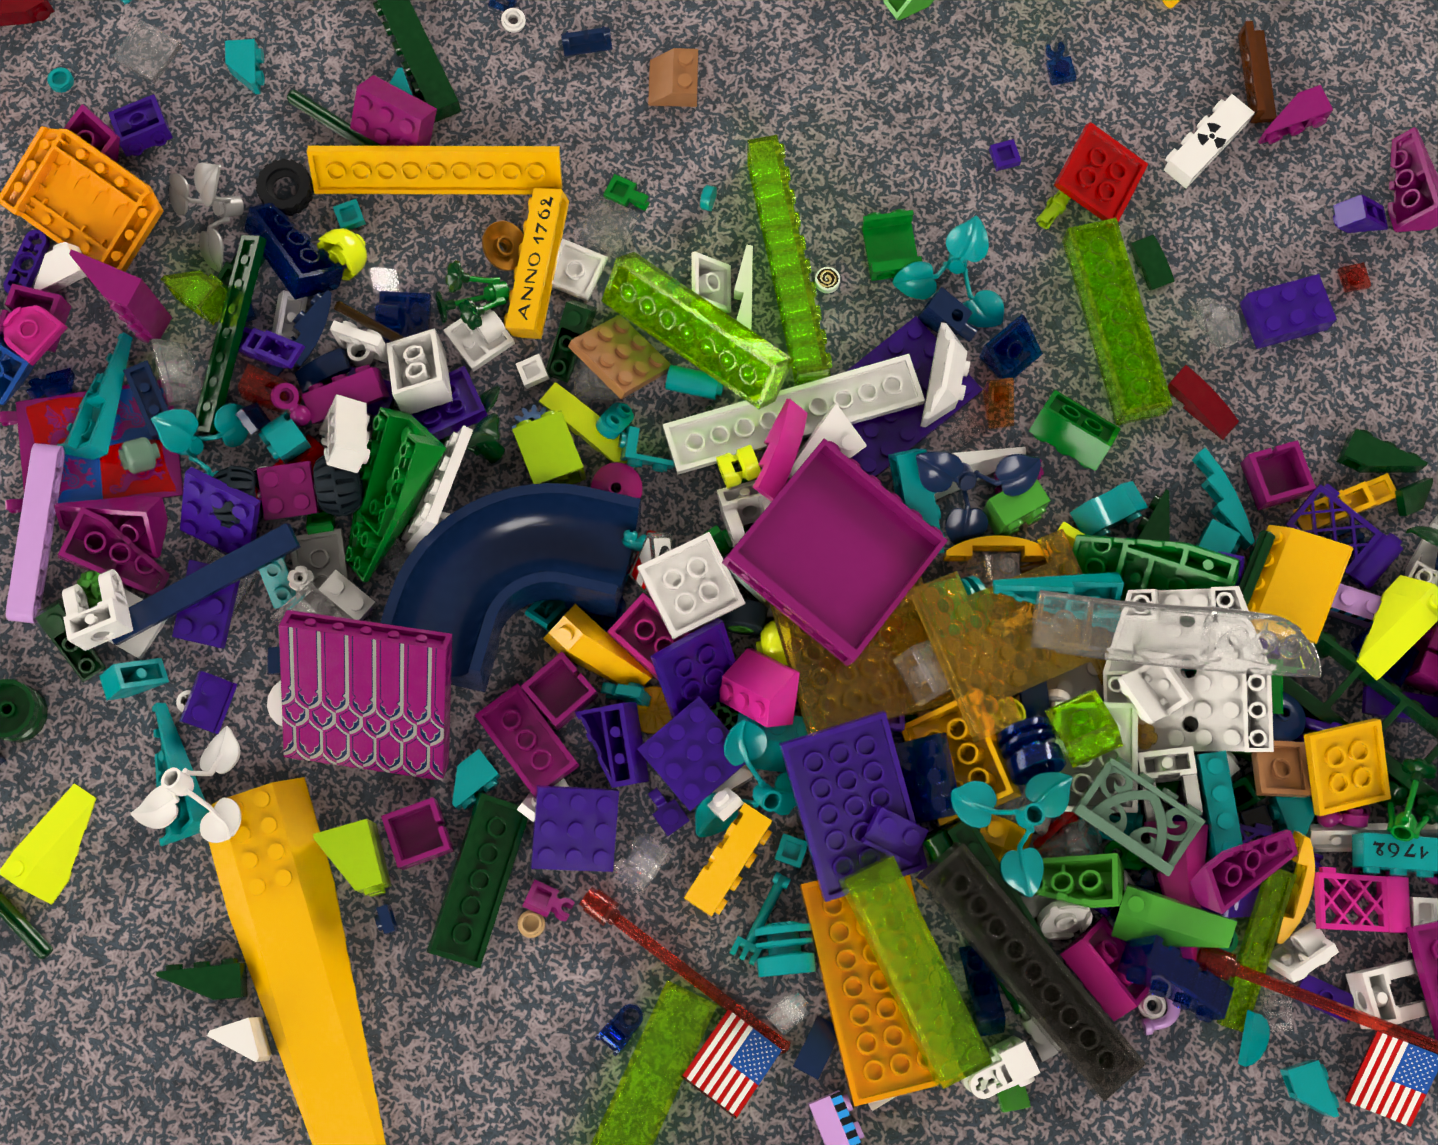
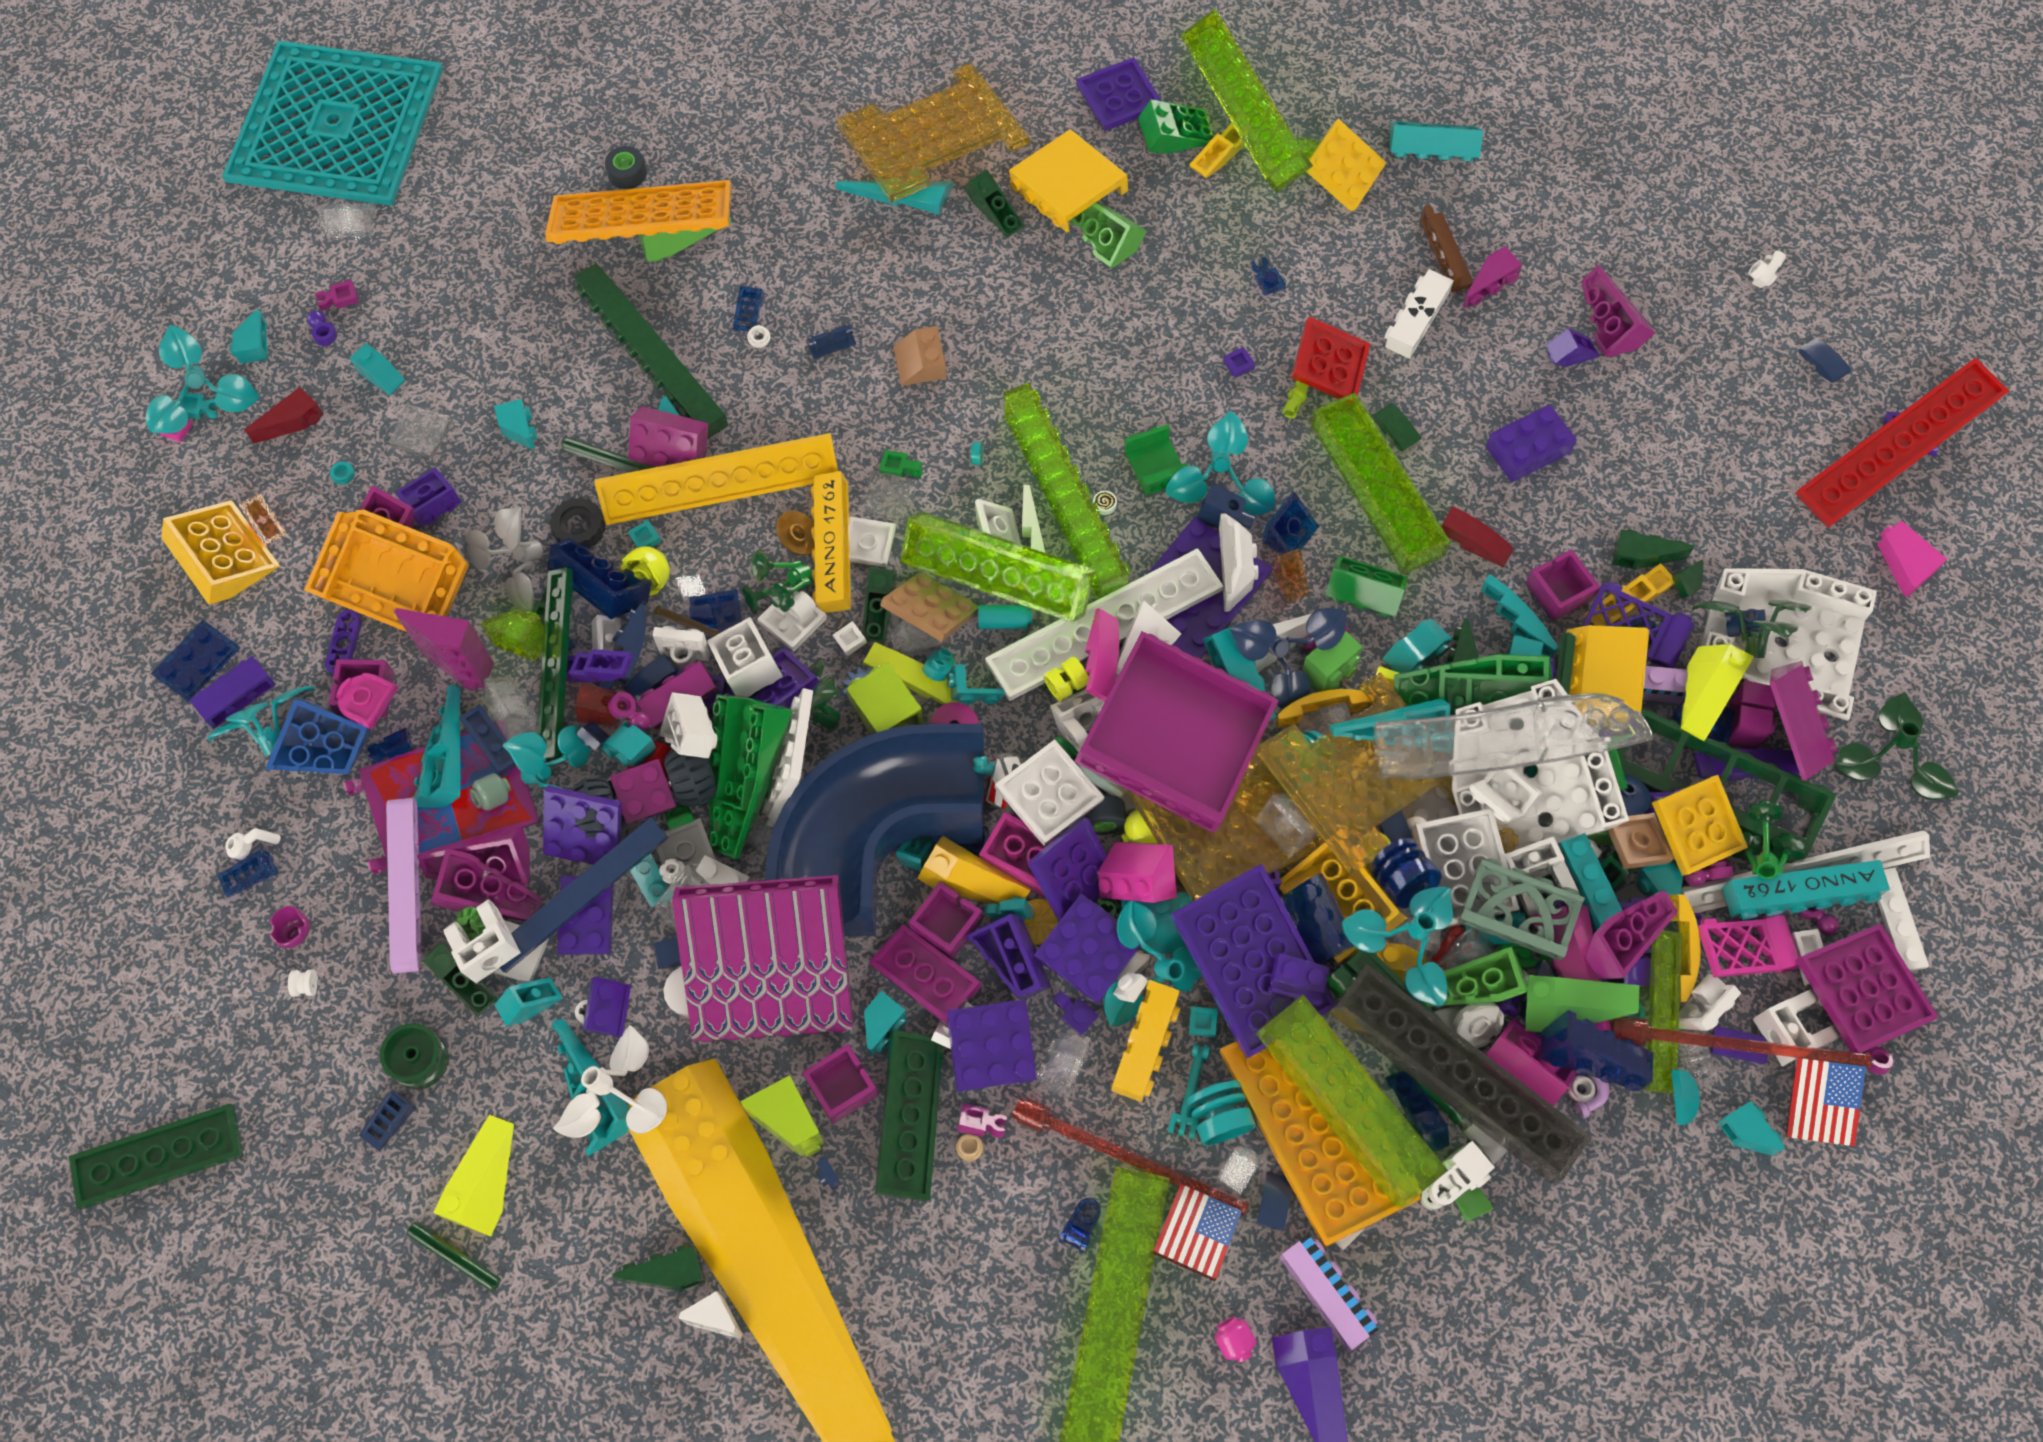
camera: 10 degrees left, 10 degrees down
(58, 269) = (380, 637): white slope -> none
(1084, 728) = (1450, 840): clear neon green slope -> none
(1217, 322) = (1470, 465): clear slope -> none
(1354, 277) = (1581, 403): clear red plate -> none

